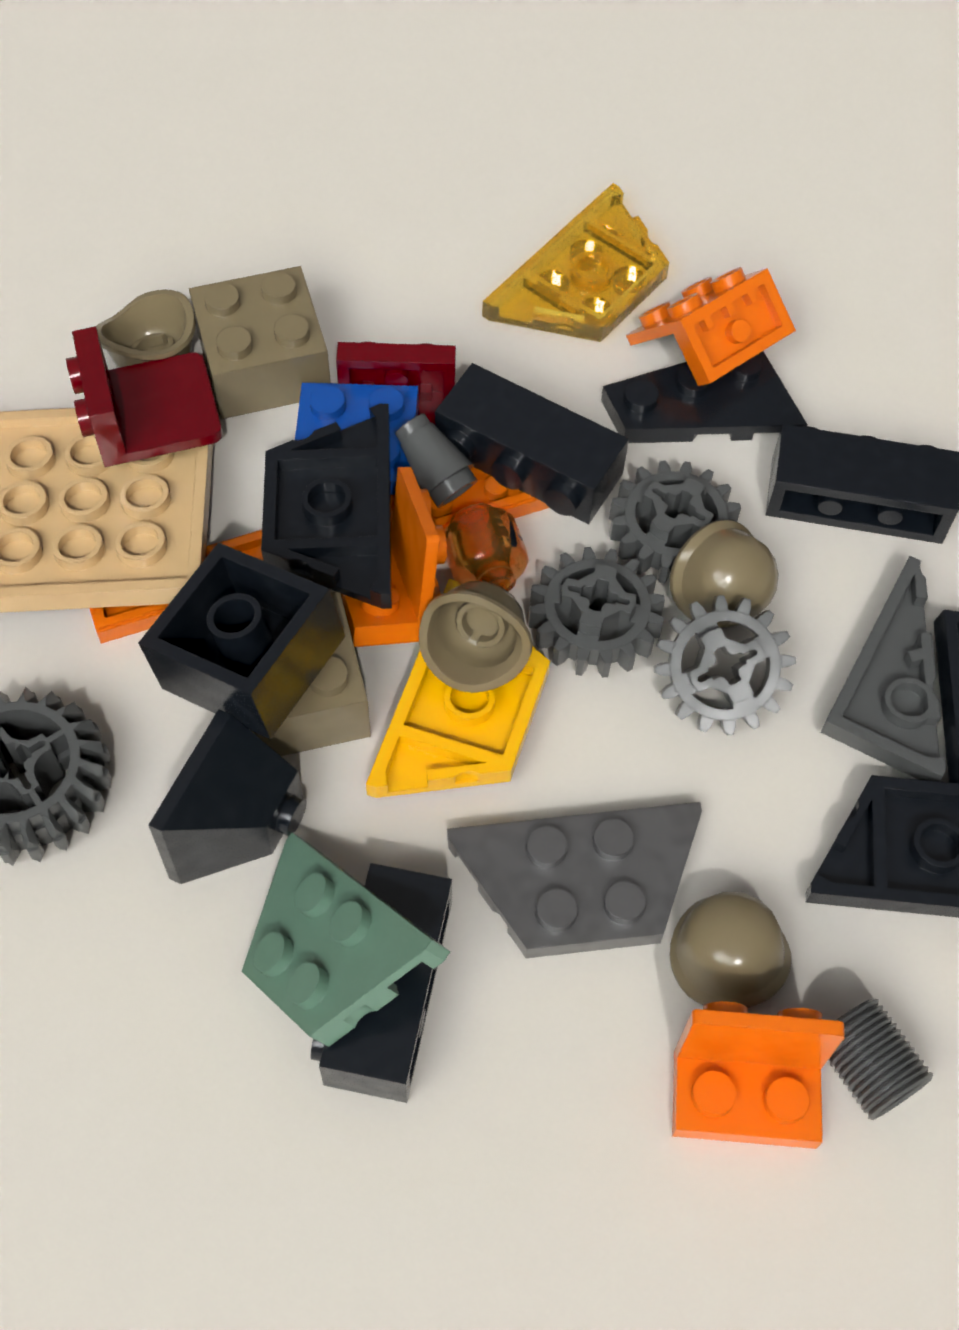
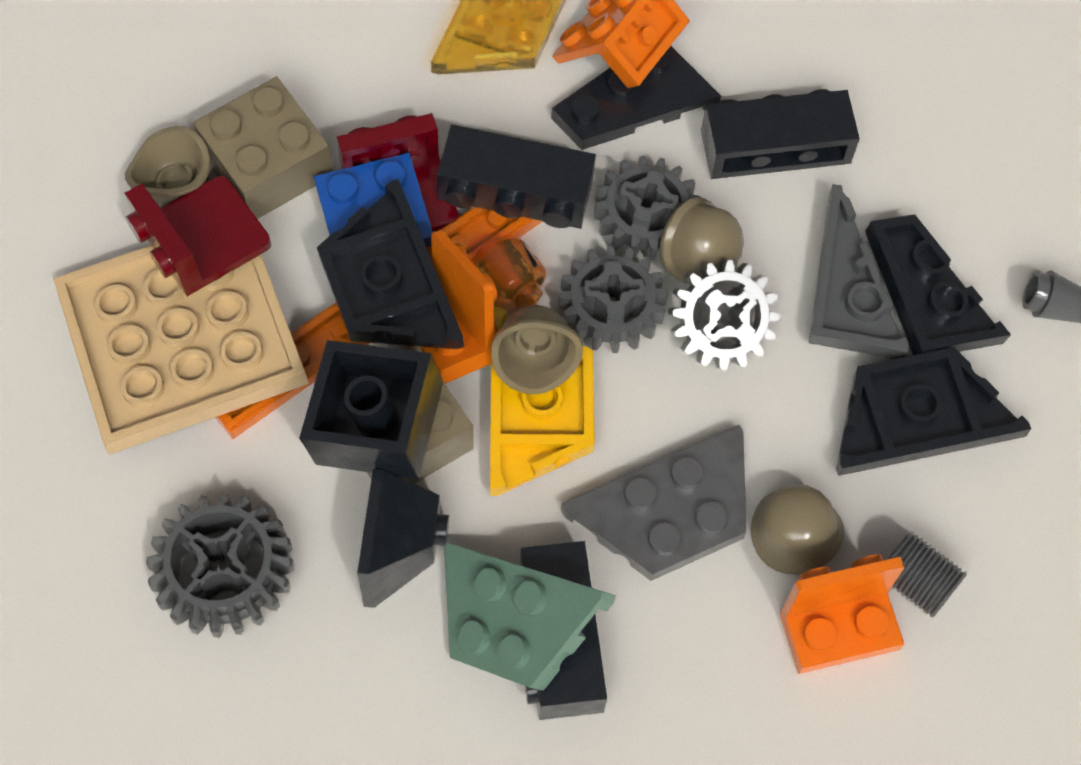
camera: 20 degrees left, 5 degrees up
(435, 460) = (449, 213): dark grey cone -> none

